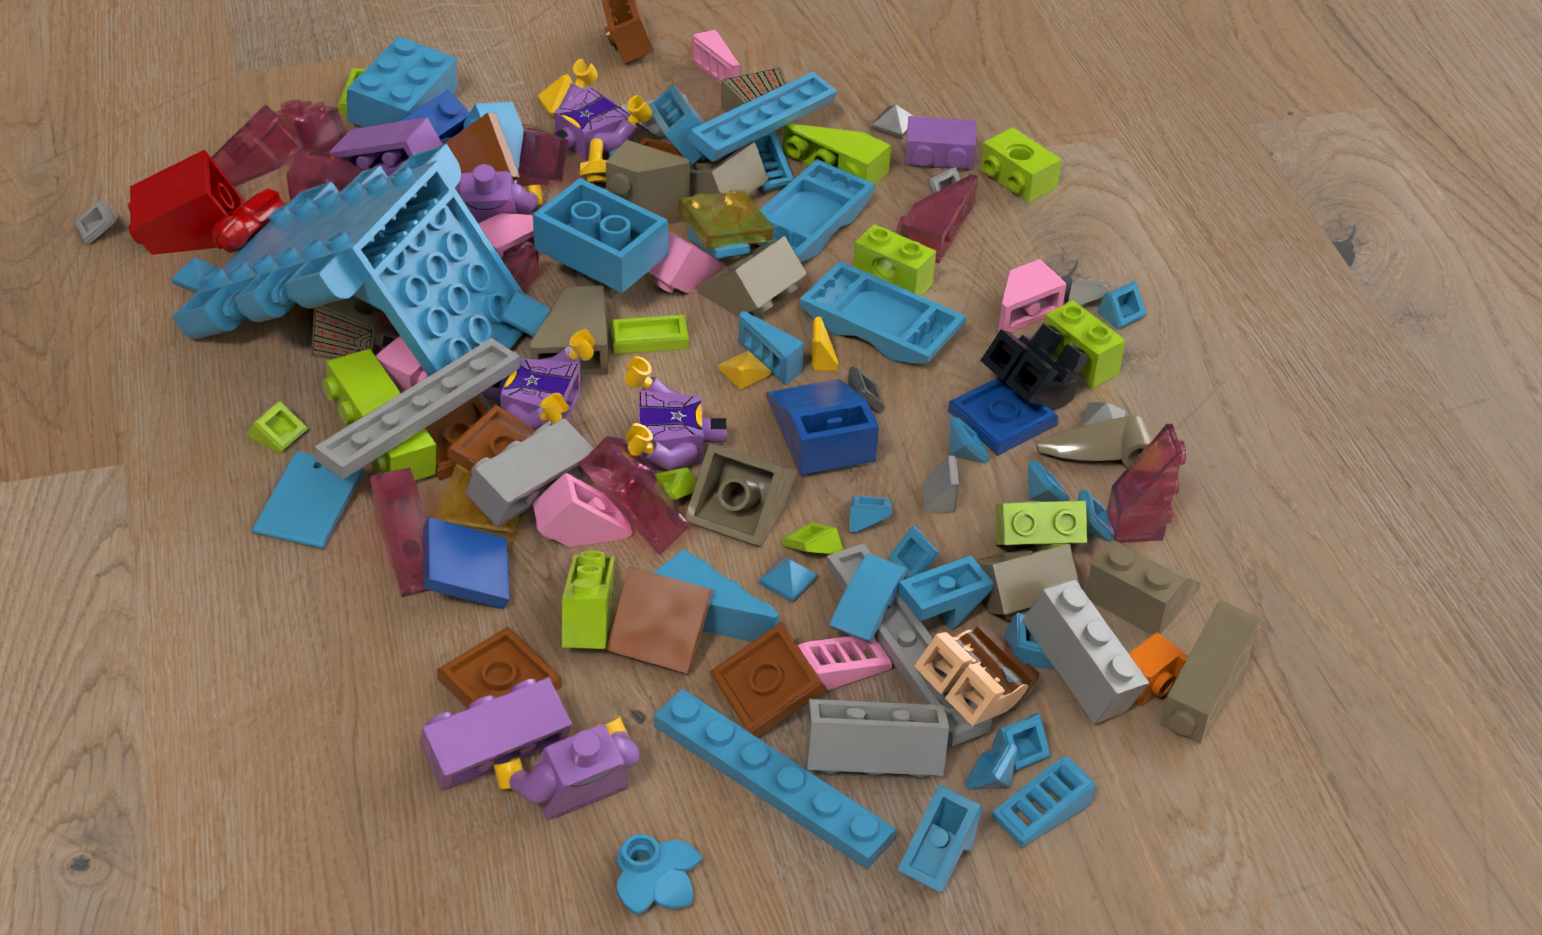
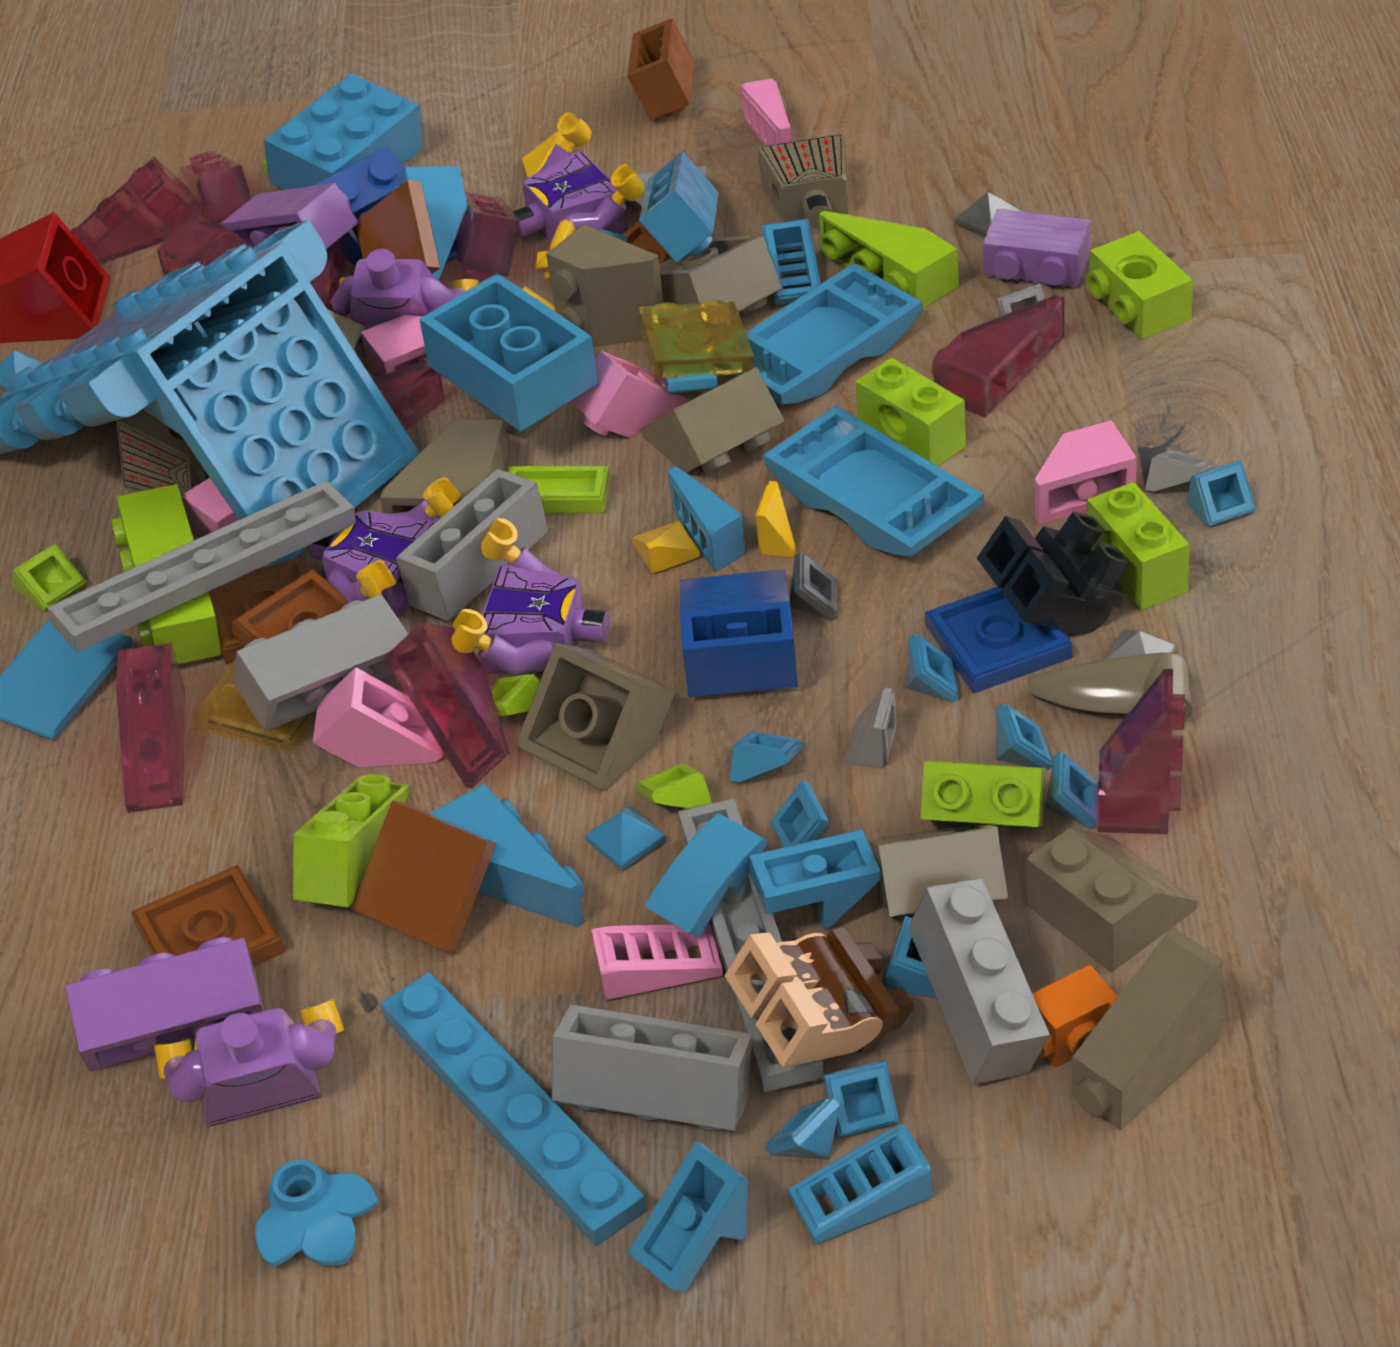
camera: 20 degrees right, 0 degrees up
(249, 218) = (63, 321): red piece -> none
(465, 563) = (208, 776): blue tile -> none
(525, 313) = (391, 447): dark azure slope -> none
(599, 387) = (446, 563): none -> light grey brick
(761, 116) = (782, 200): dark azure plate -> none
(768, 680) = (539, 972): dark orange tile -> none

